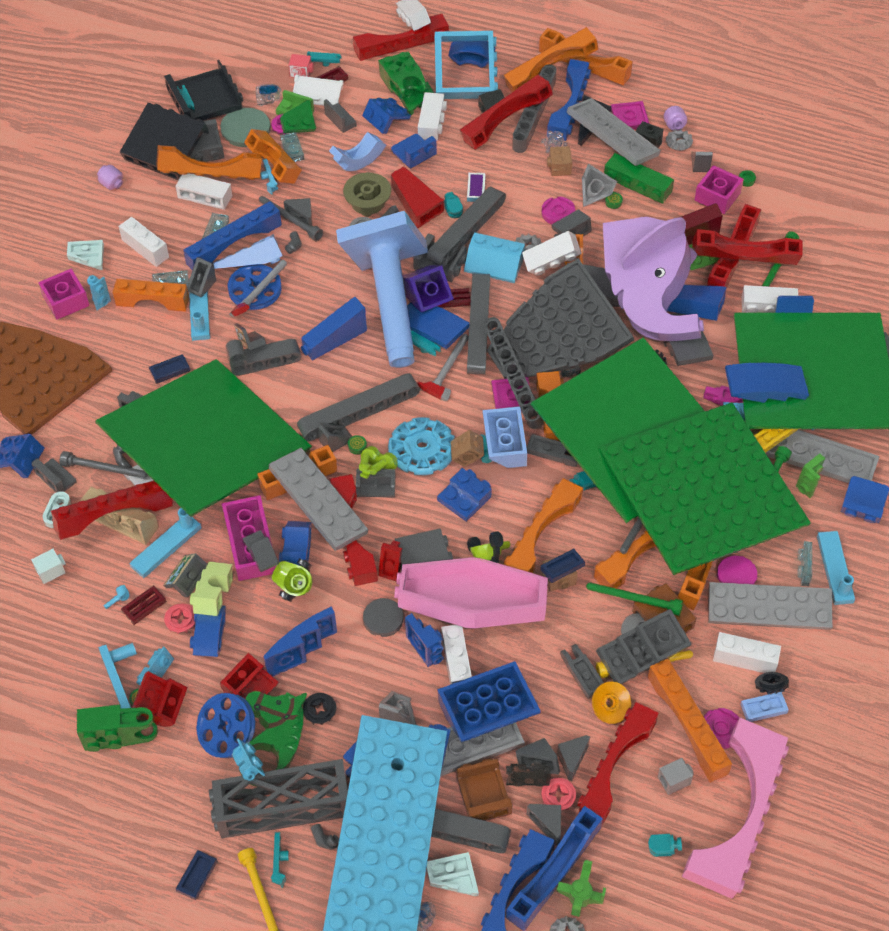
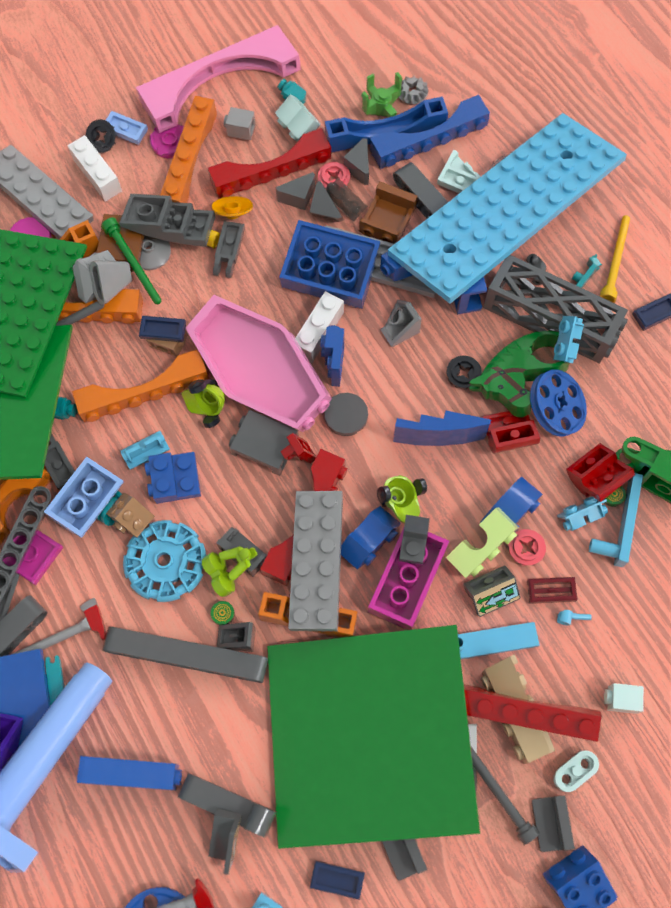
camera: 140 degrees left, 15 degrees up
(501, 496) = (139, 452): none -> medium azure hinge
(634, 817) = (296, 118): none -> light aqua brick
(641, 565) = (100, 277): none -> light grey piece

